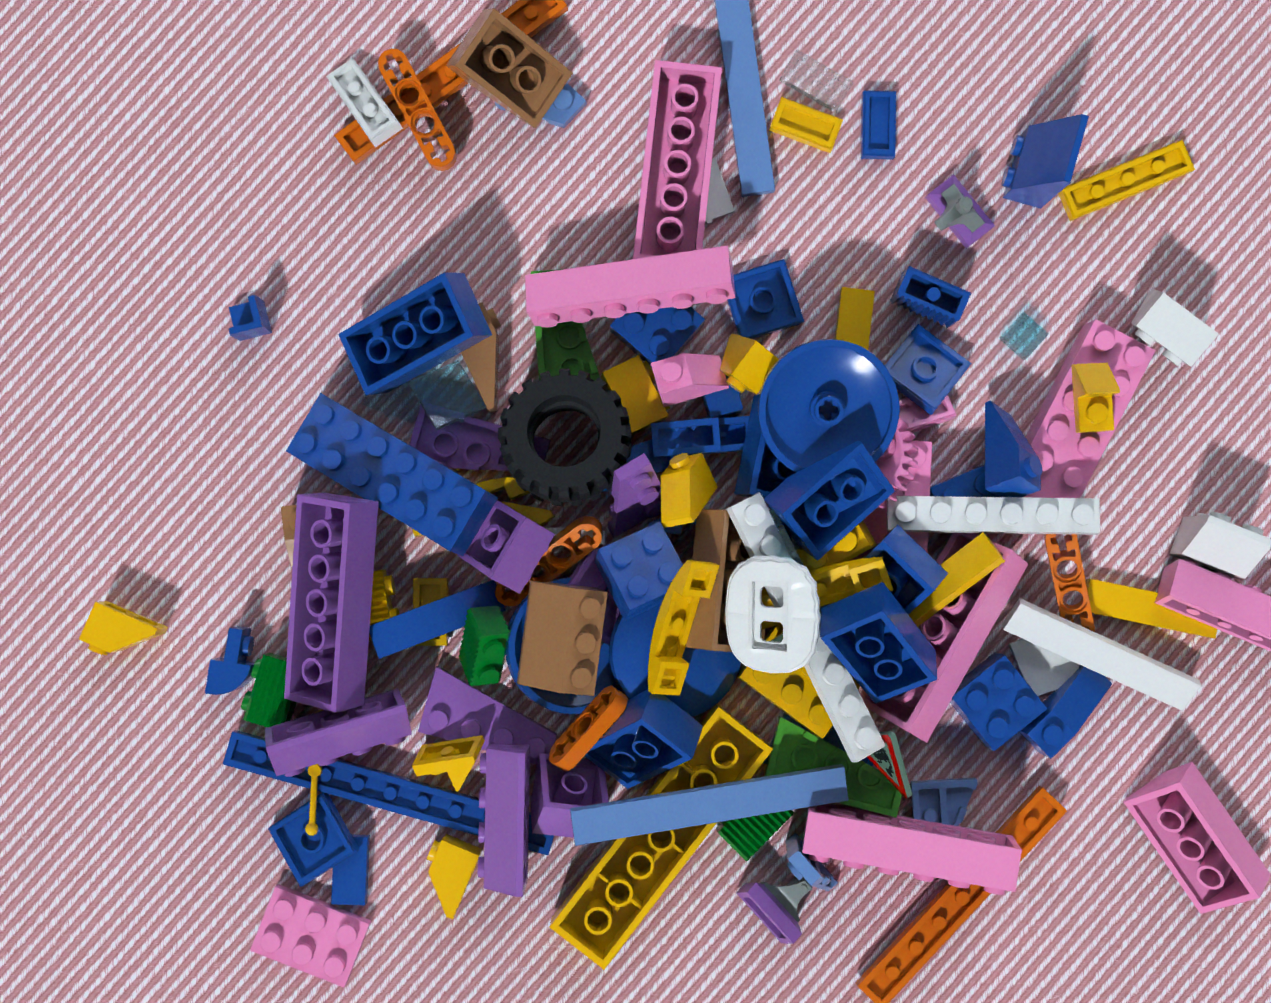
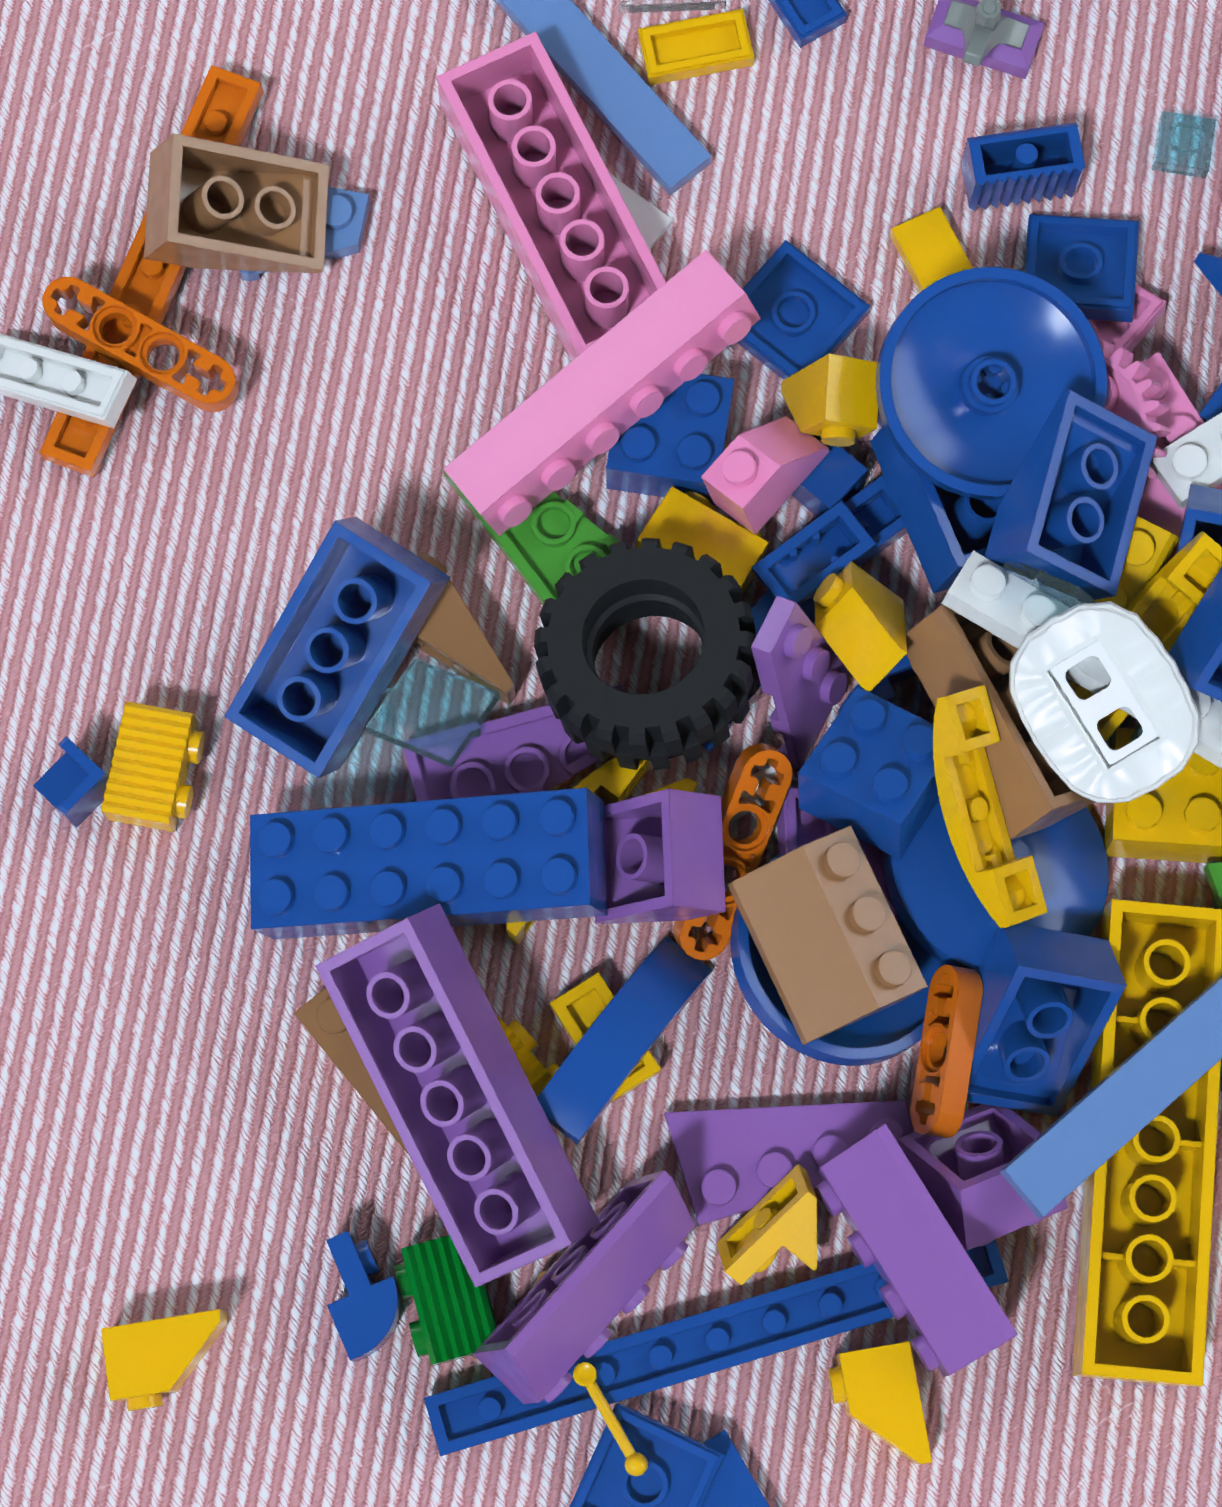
camera: 30 degrees left, 10 degrees down
(292, 335) = (152, 767): none -> yellow brick
(484, 645) = (718, 1026): green brick -> none

